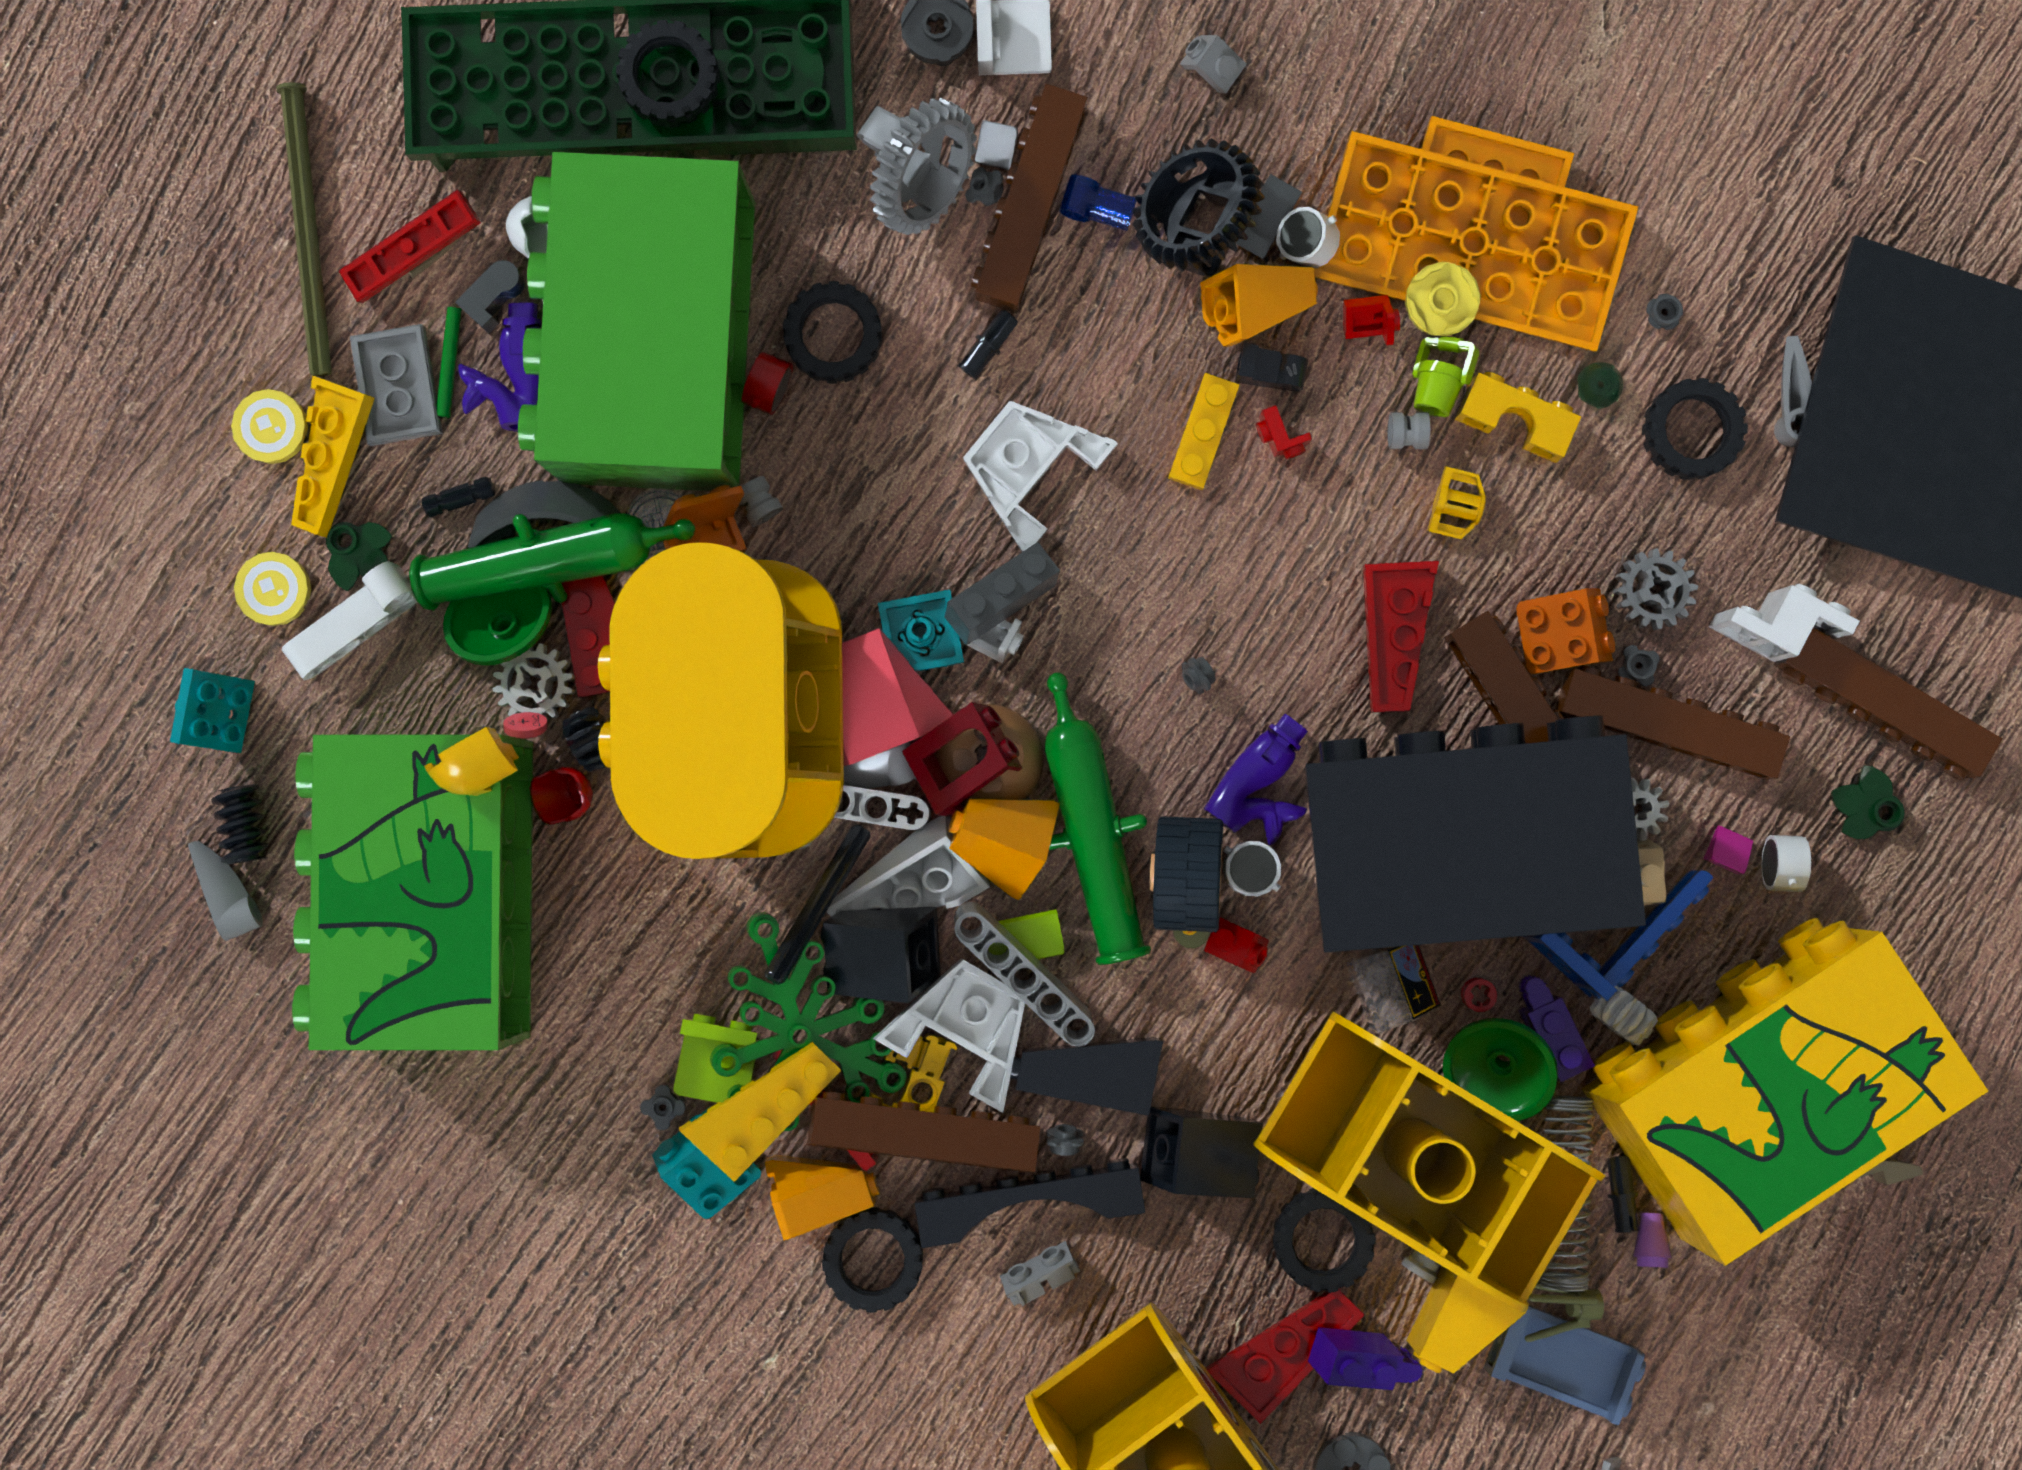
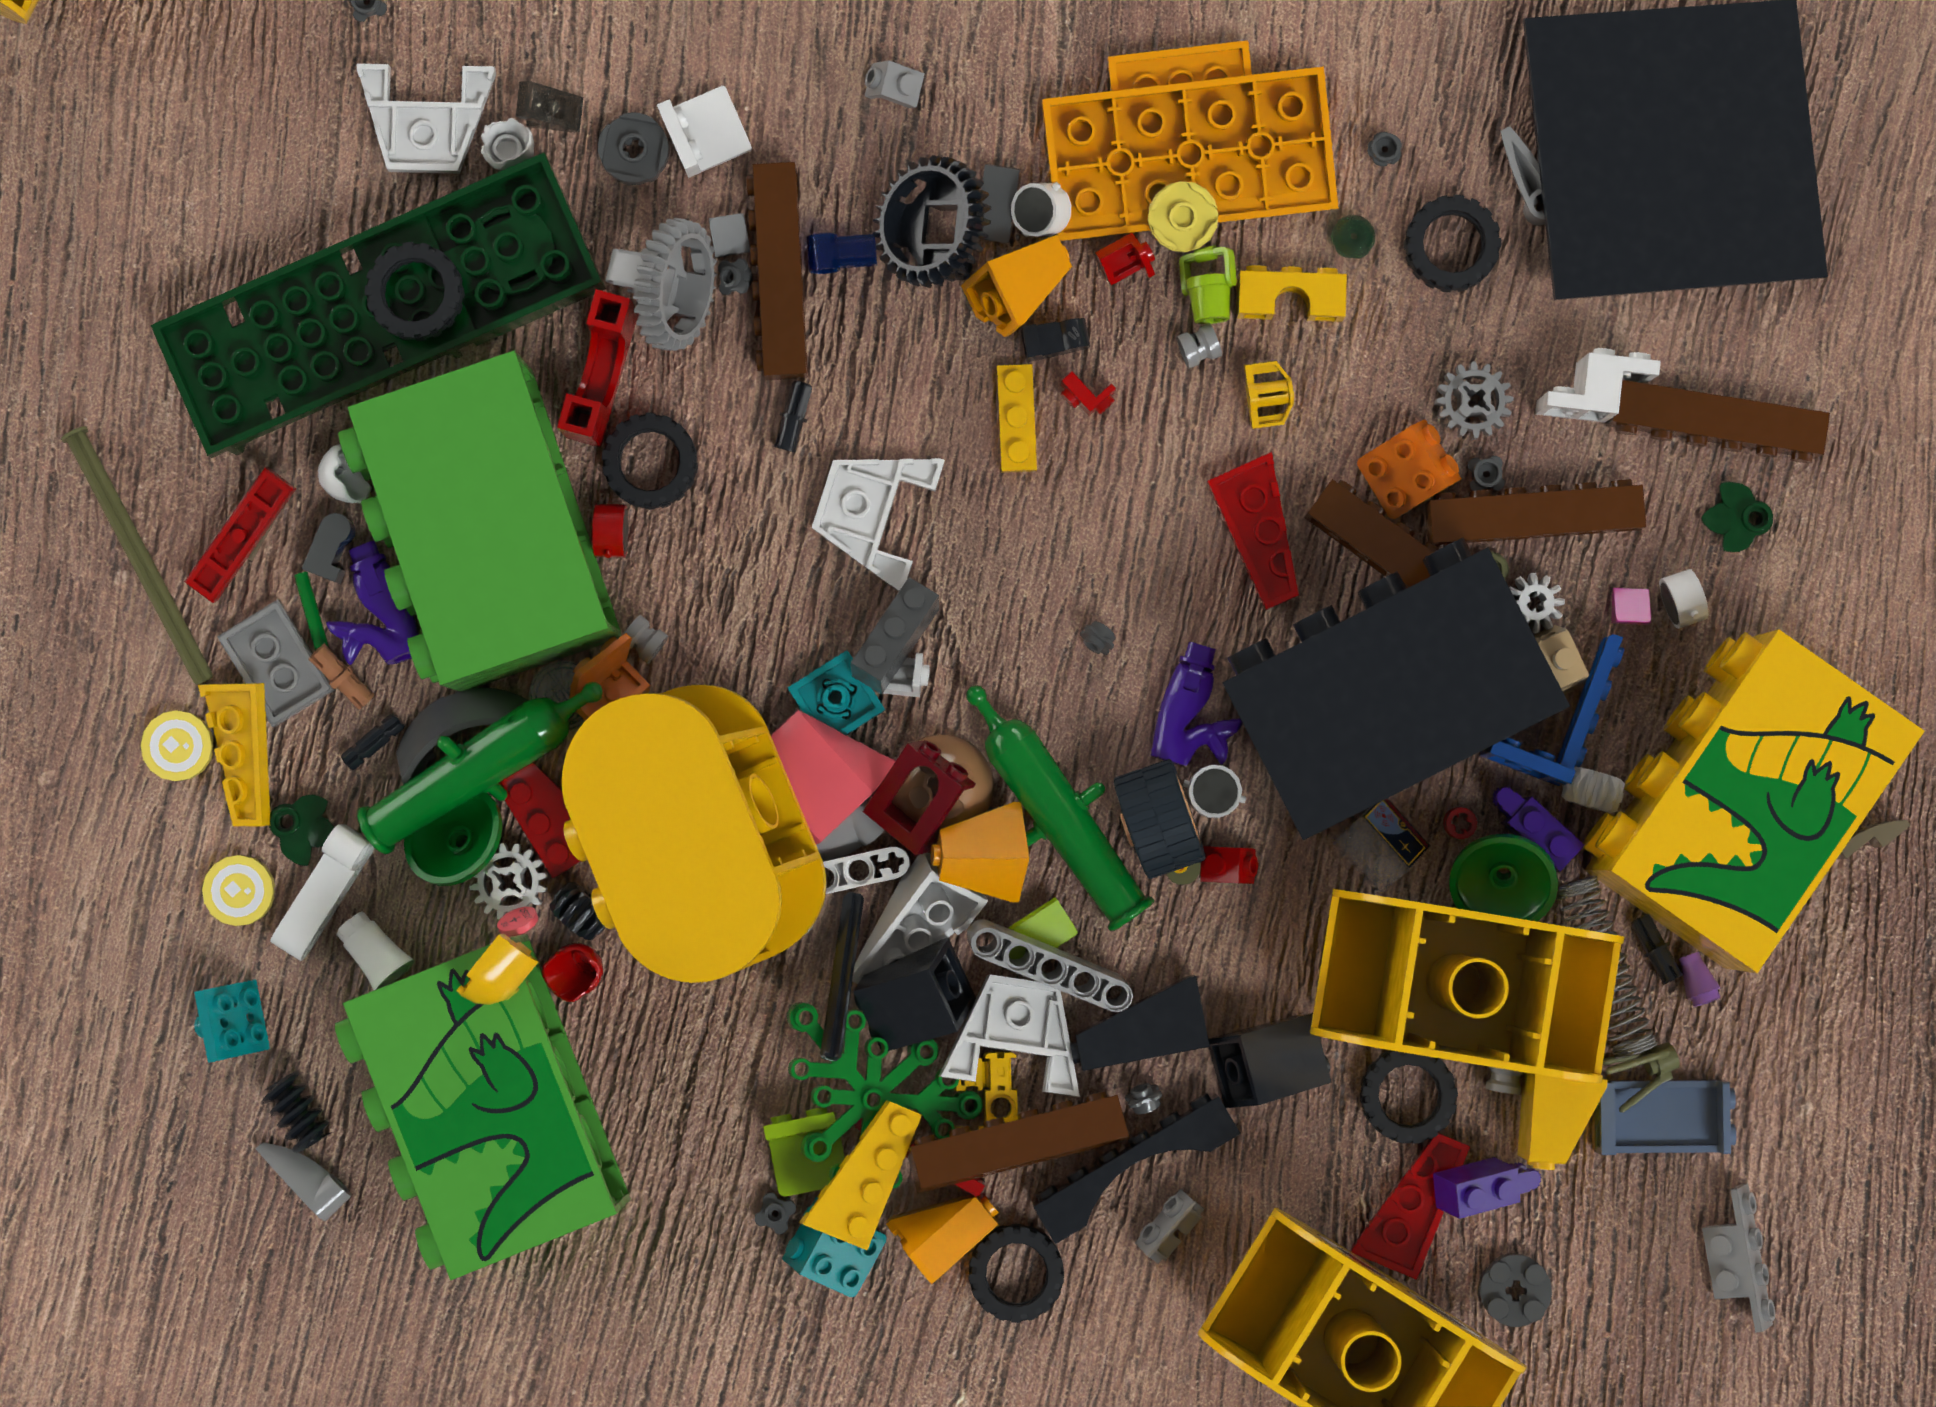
camera: 25 degrees left, 0 degrees up
(377, 698) = (373, 951): none -> white plant
(452, 421) = (341, 676): none -> nougat pin
(791, 259) = (611, 327): none -> red arch

